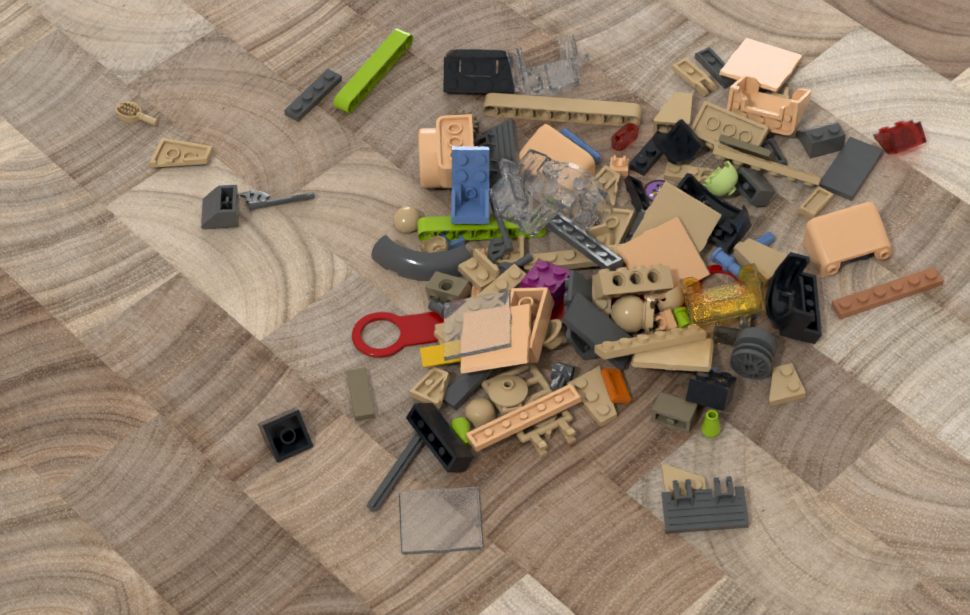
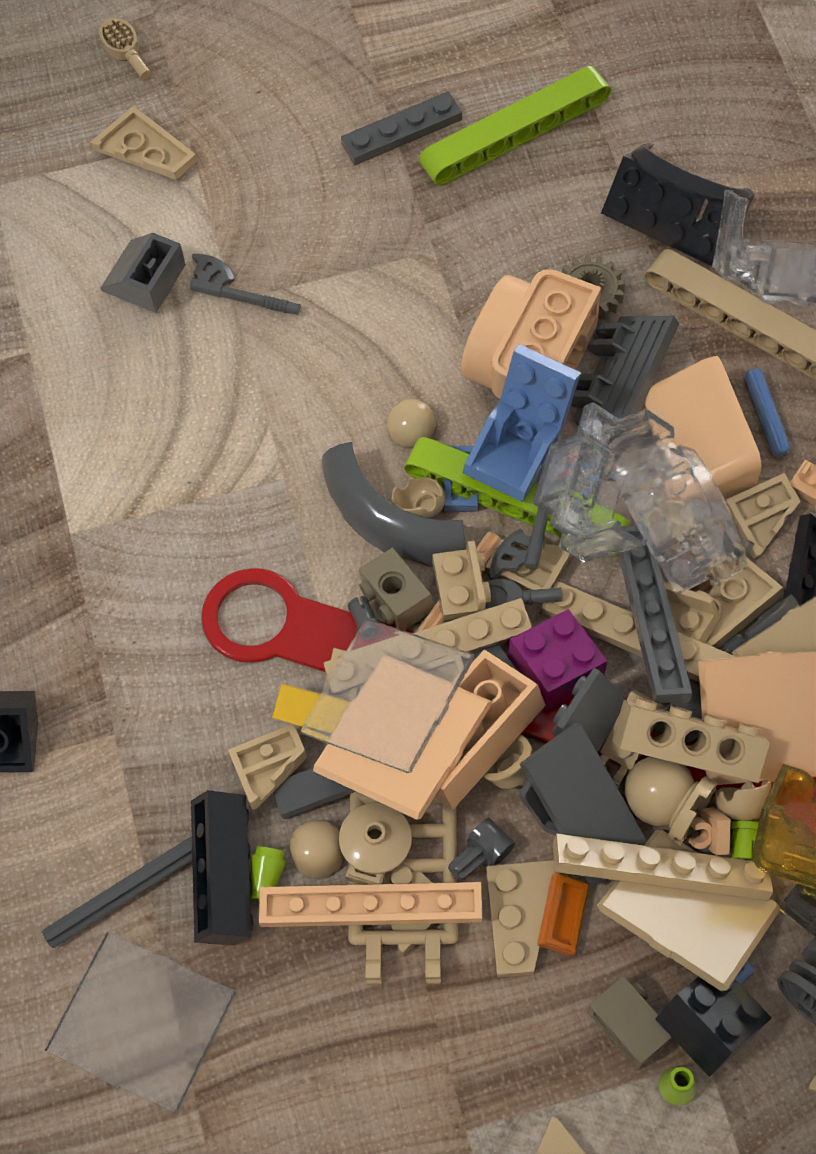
camera: 30 degrees right, 15 degrees up
(360, 394) = (156, 712): dark tan tile -> none

